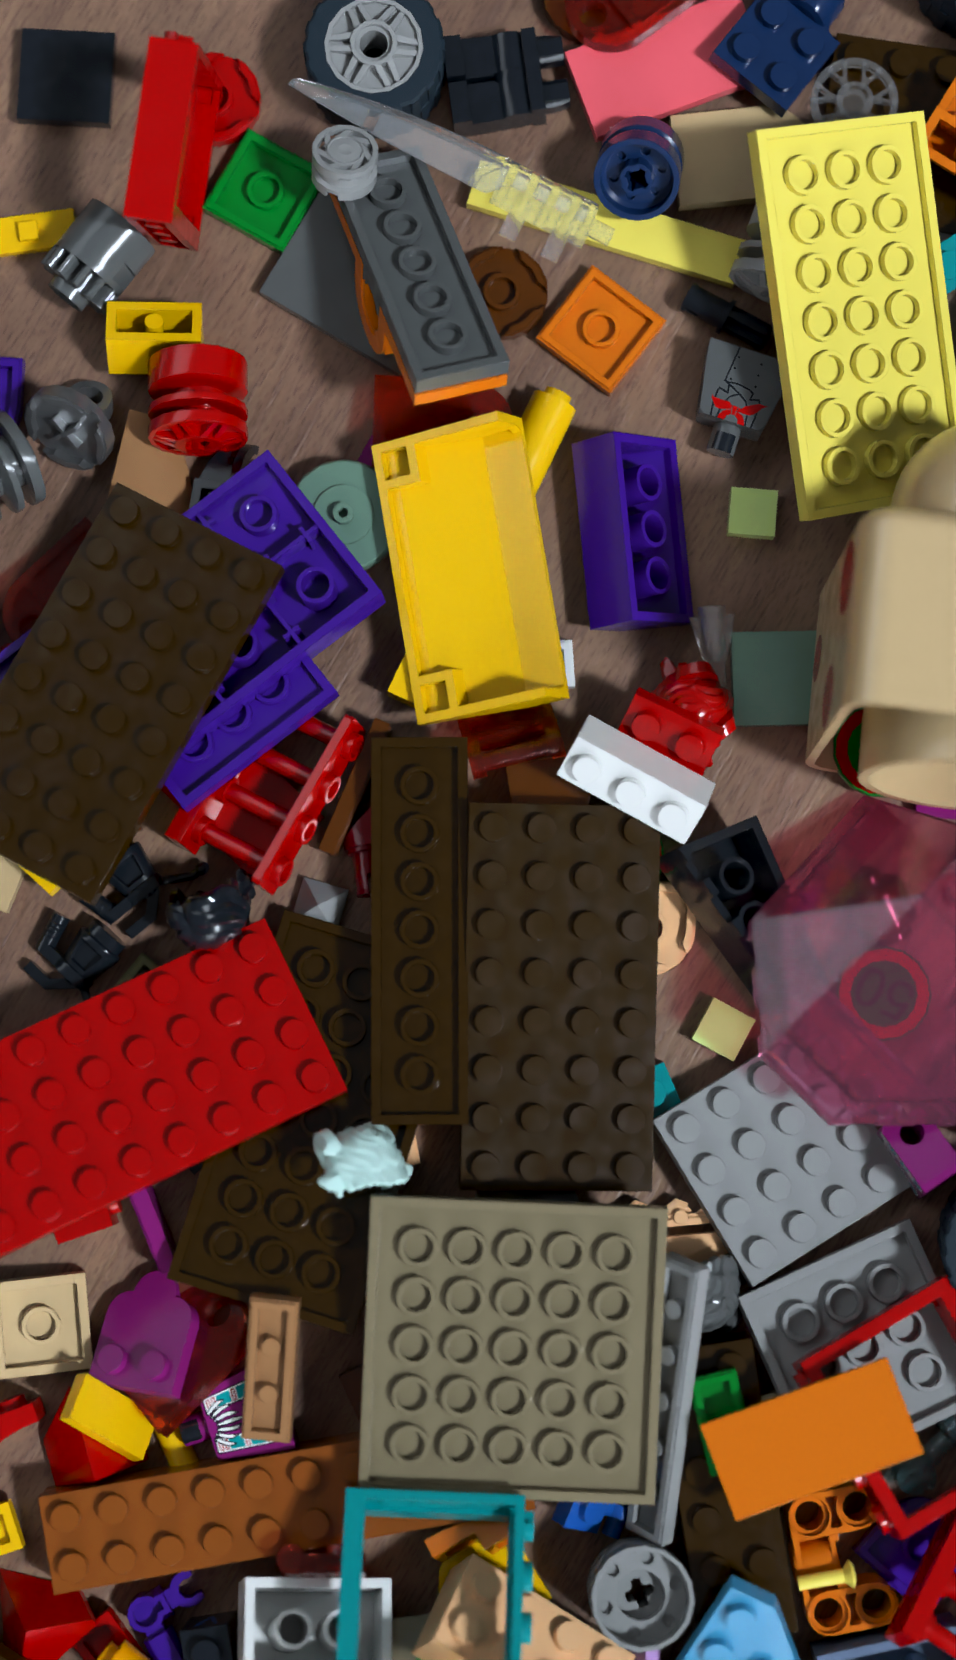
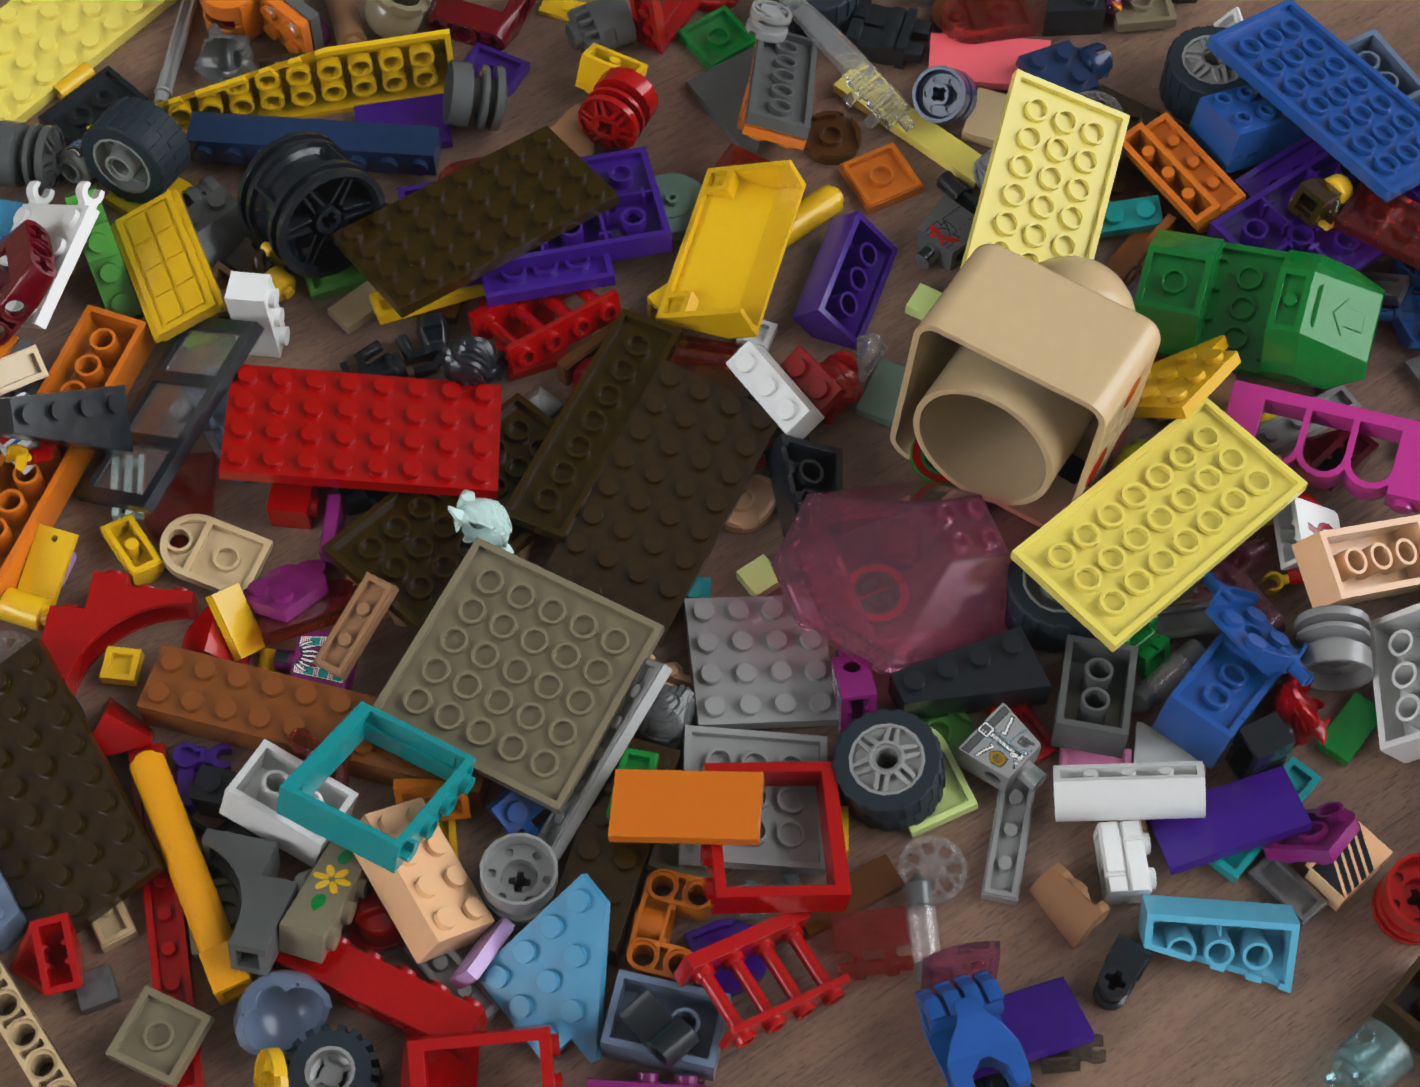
camera: 25 degrees right, 25 degrees down
(71, 424) = (537, 97): flat silver tile -> none
(827, 1578) = (654, 927): light yellow piece -> none

